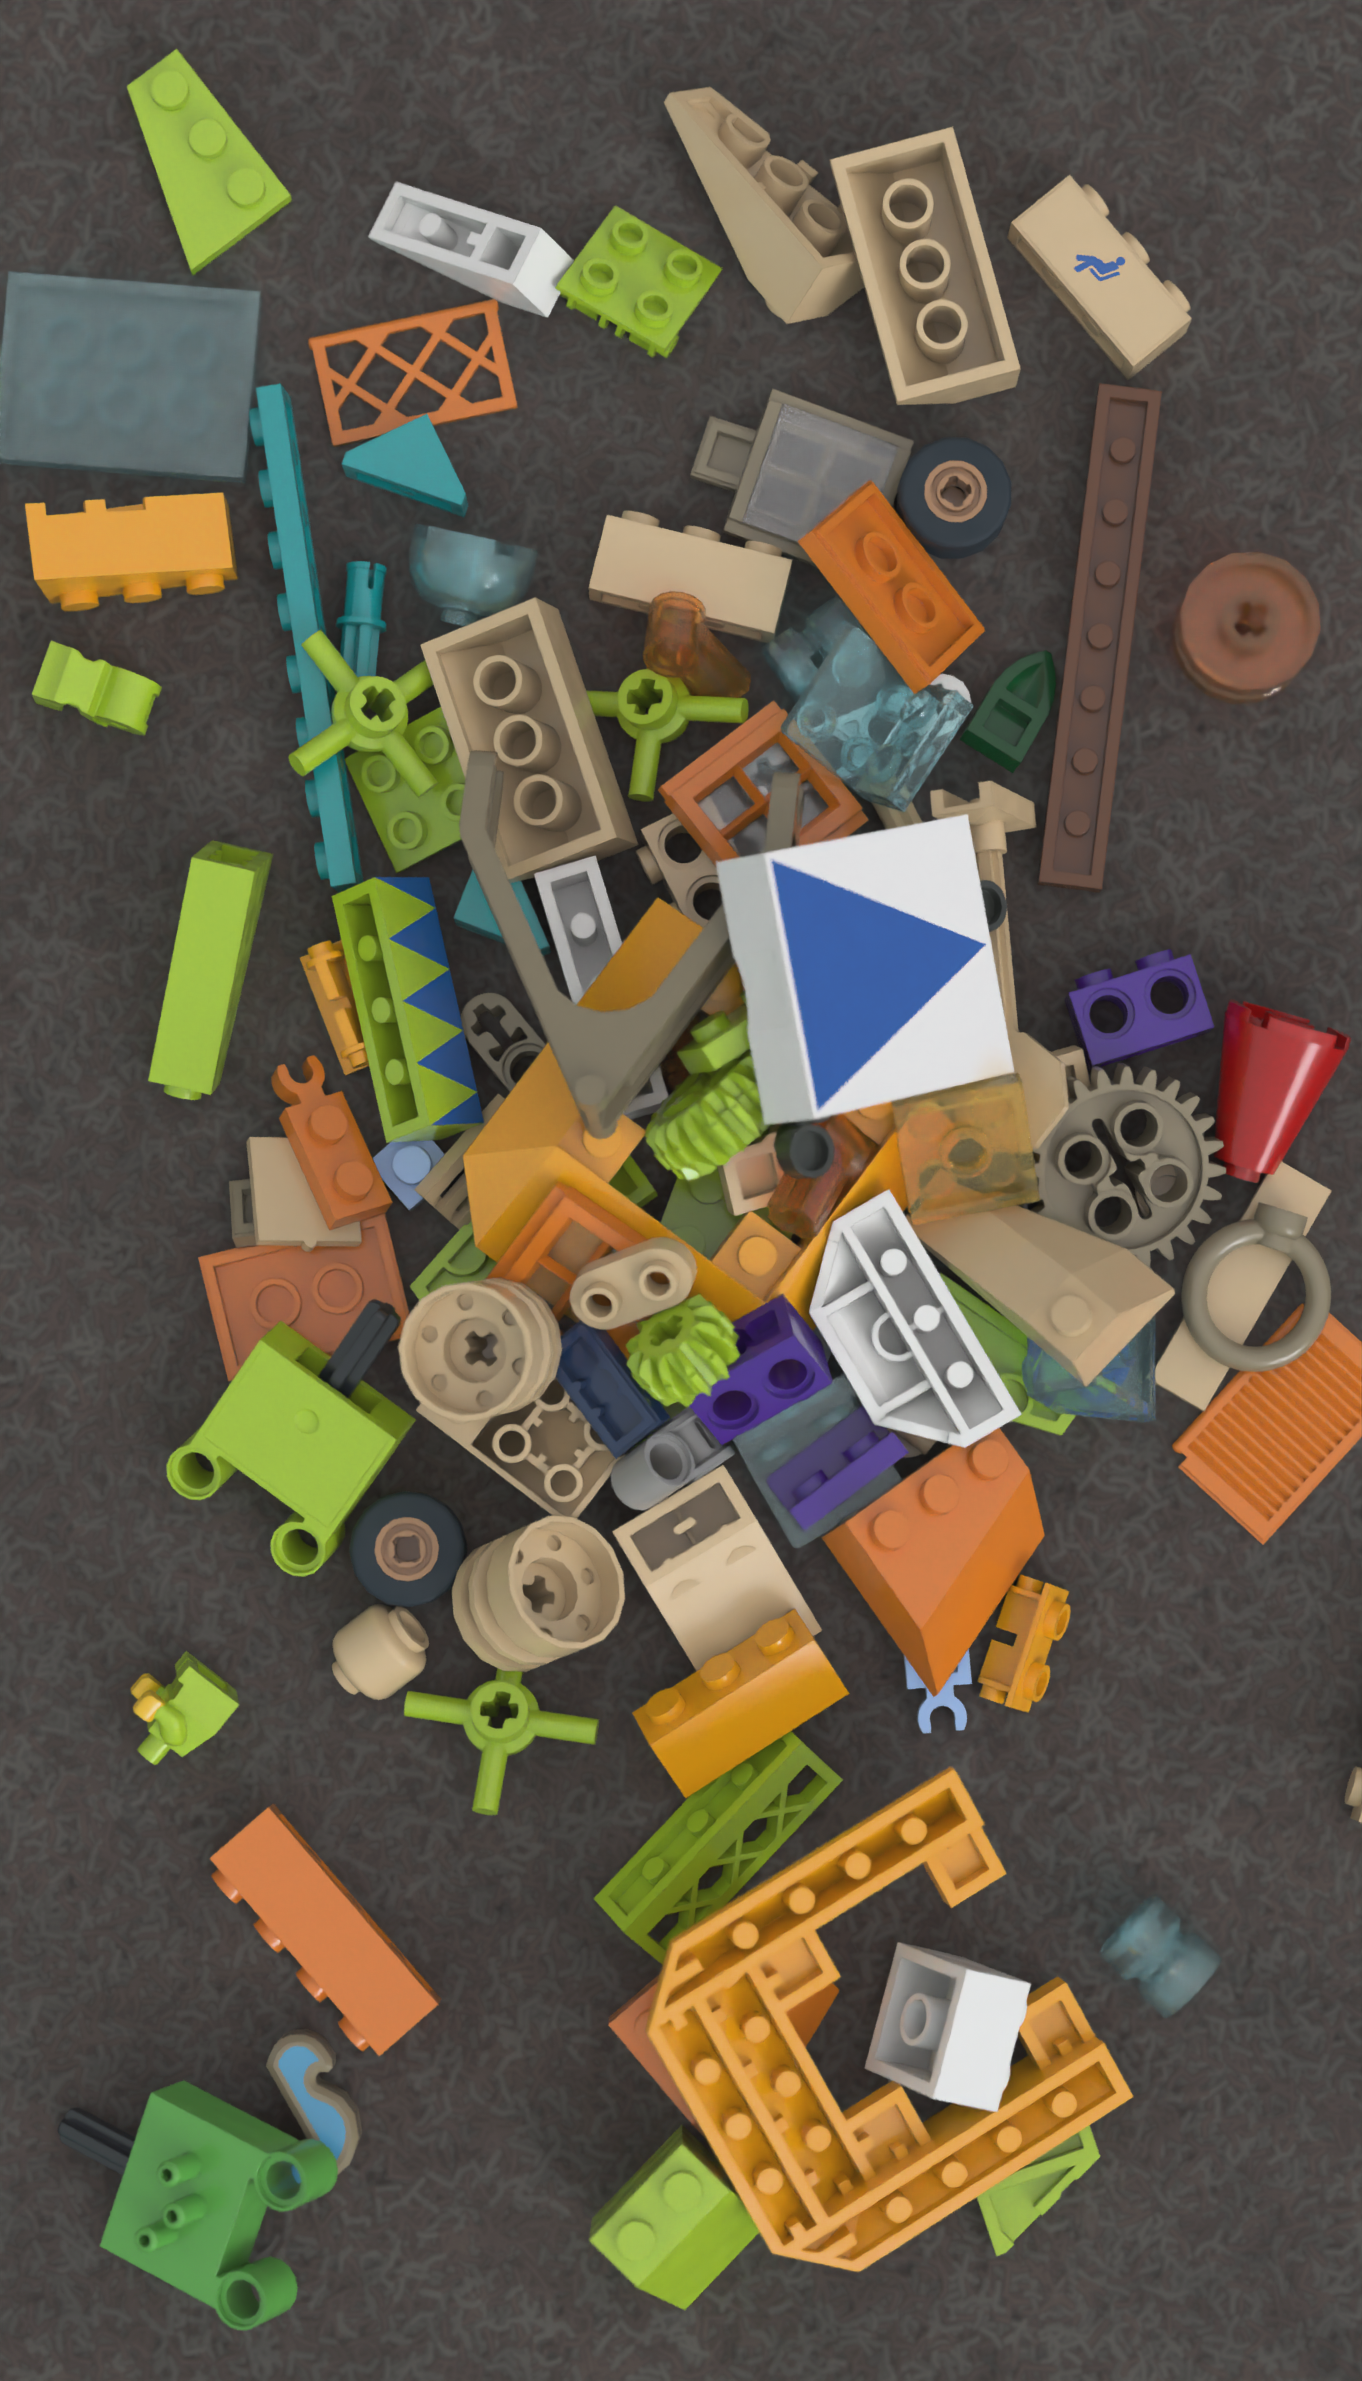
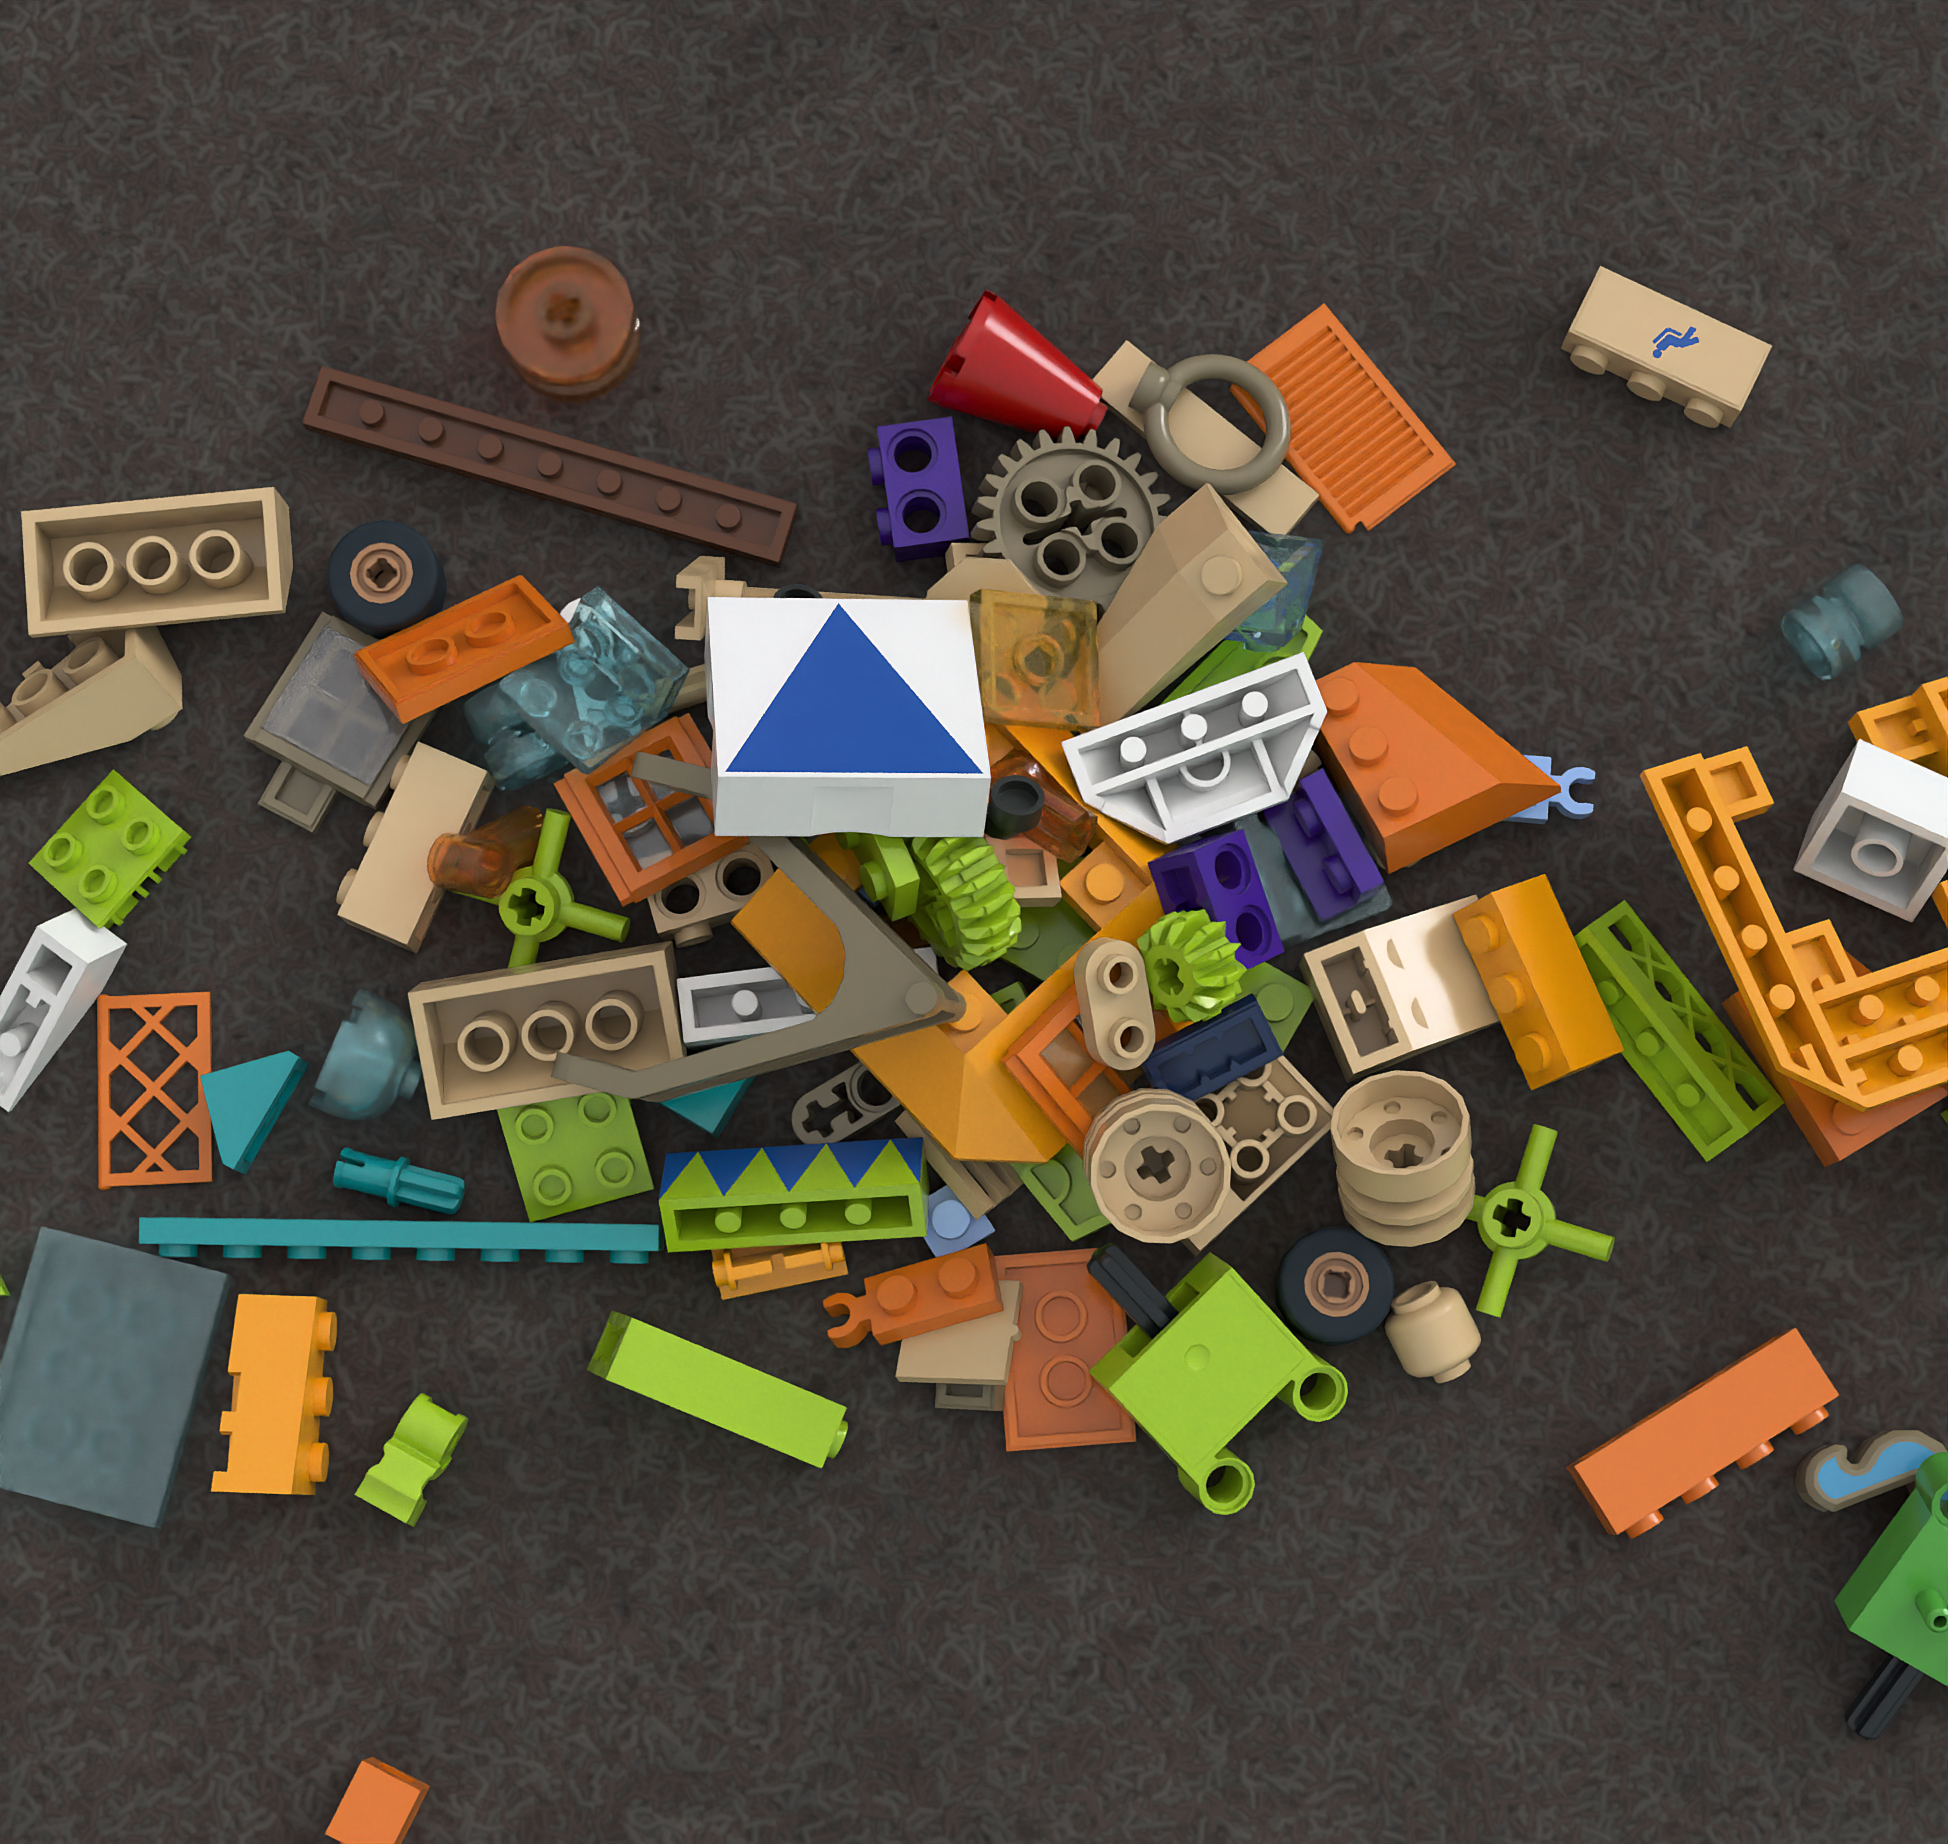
camera: 75 degrees left, 5 degrees down
(183, 1711) = (1462, 1539): lime piece -> none
(357, 731) = (498, 1201): lime bar -> none
(667, 1460) = (1292, 1006): light grey piece -> none
(1013, 711) = (607, 558): dark green plate -> none
(1022, 1667) = (1541, 710): light orange hinge -> none
(1100, 275) = (197, 405): tan brick -> none

